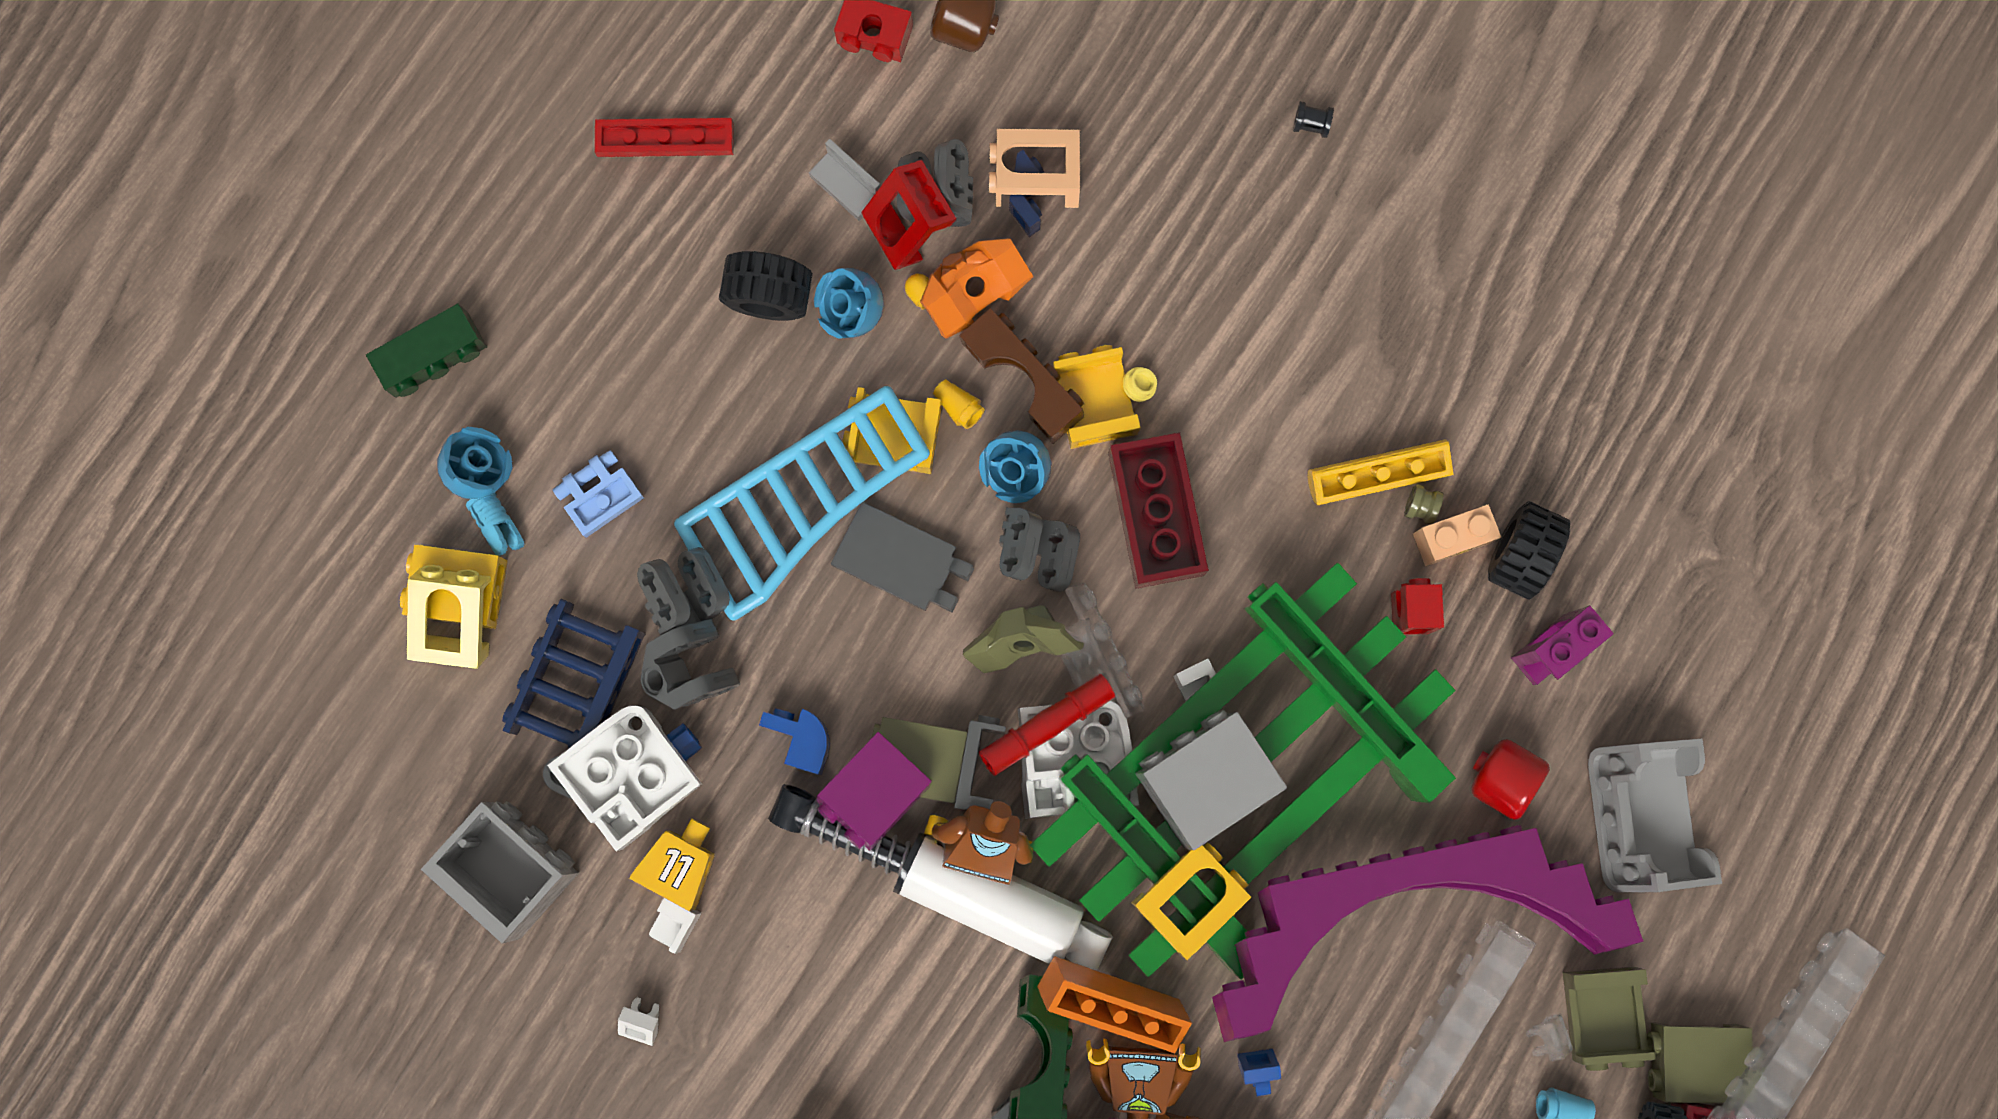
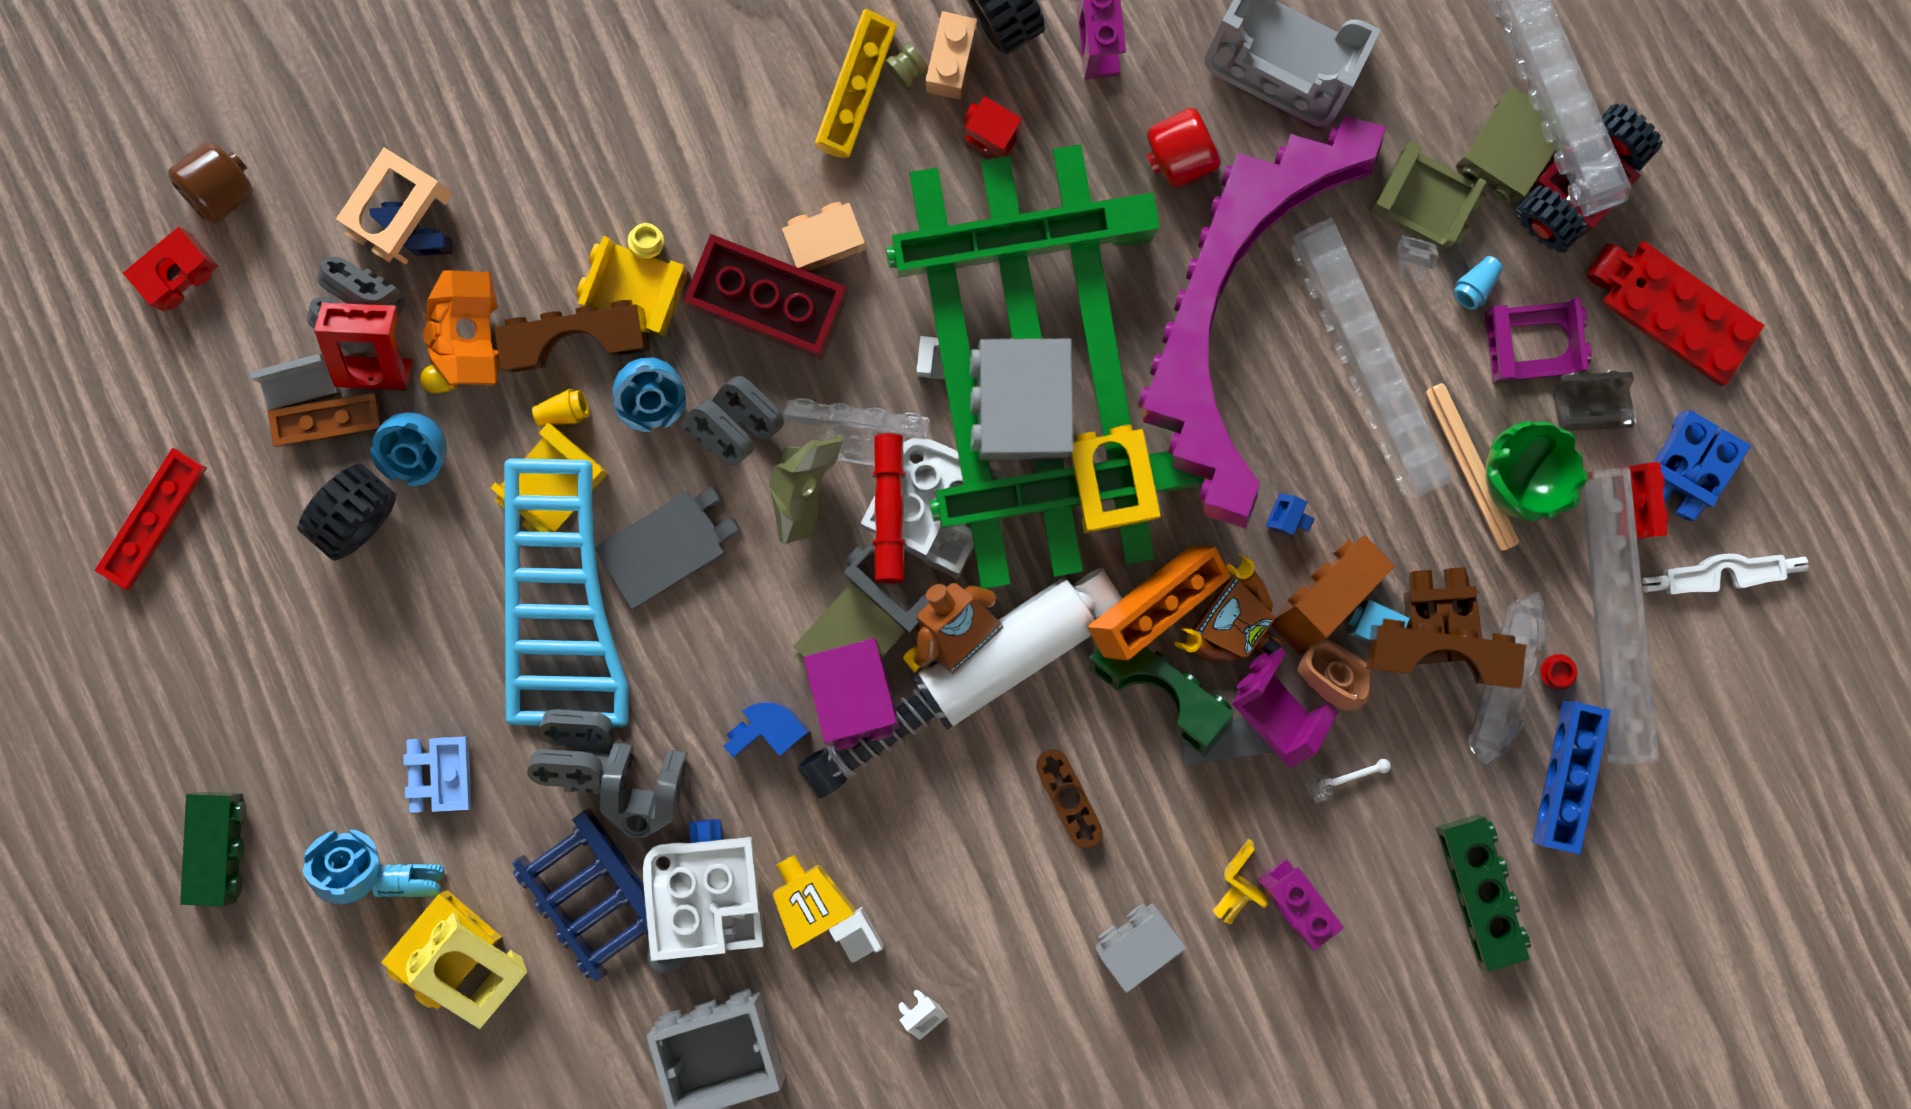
camera: 55 degrees left, 5 degrees up
(830, 222) = (325, 420): none -> dark orange plate
(895, 1061) = (1089, 818): none -> reddish brown beam
(1238, 526) = (824, 237): none -> light nougat brick

